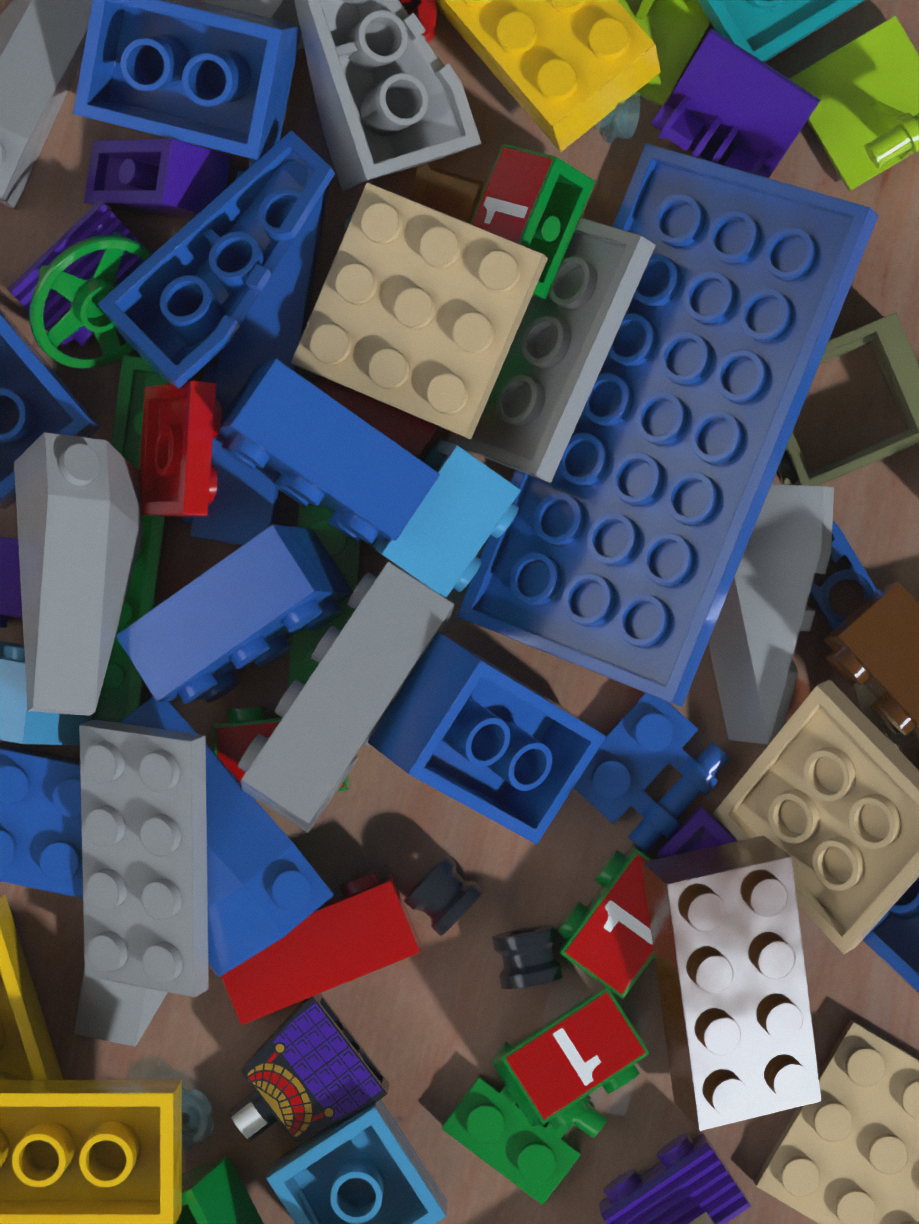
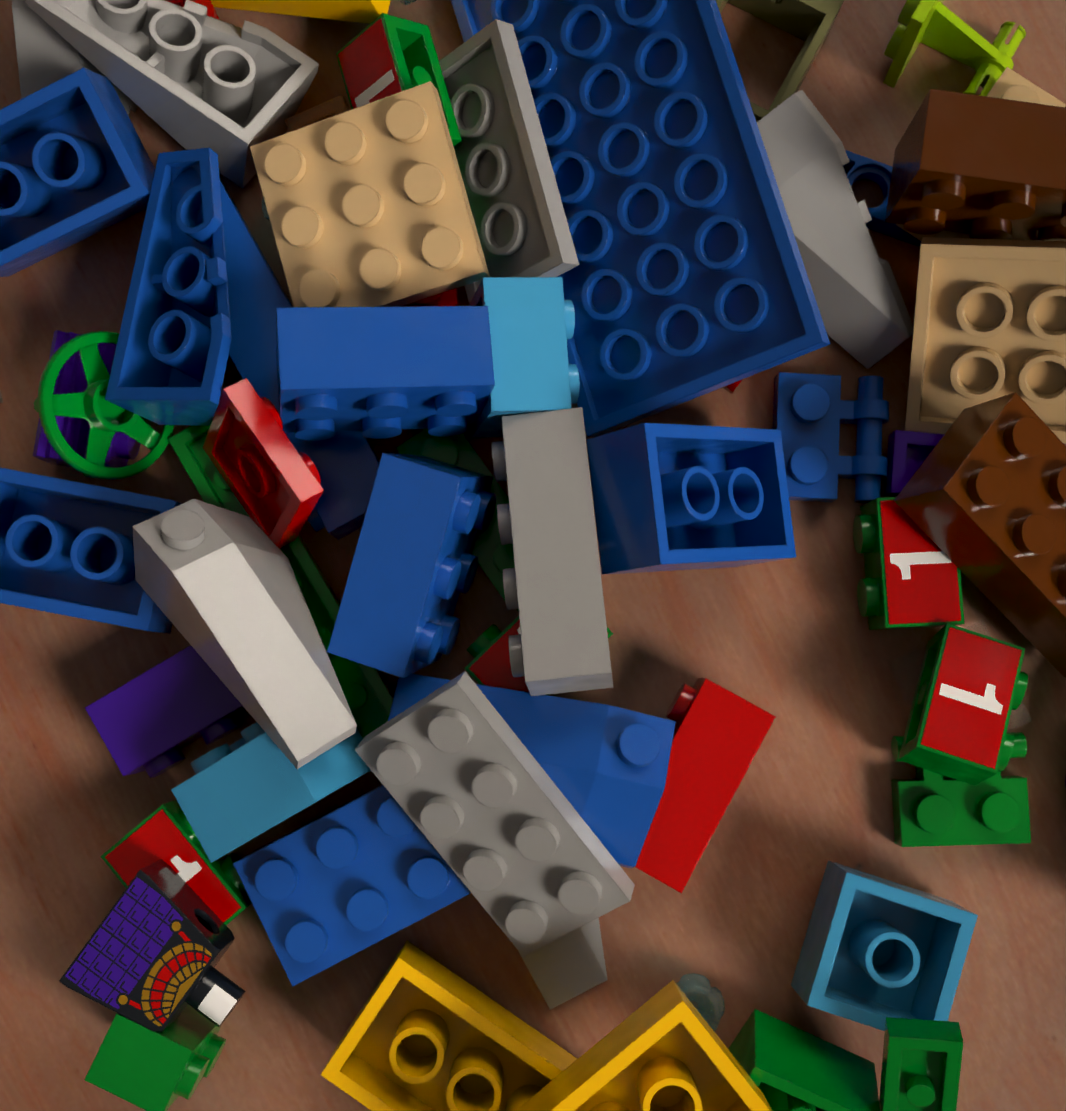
camera: 35 degrees left, 5 degrees down
(155, 176) = (84, 281): dark purple slope -> none
(307, 1075) = (765, 892): torso -> none
(443, 895) = (753, 659): black wheel -> none
(527, 957) = (858, 654): black wheel -> none

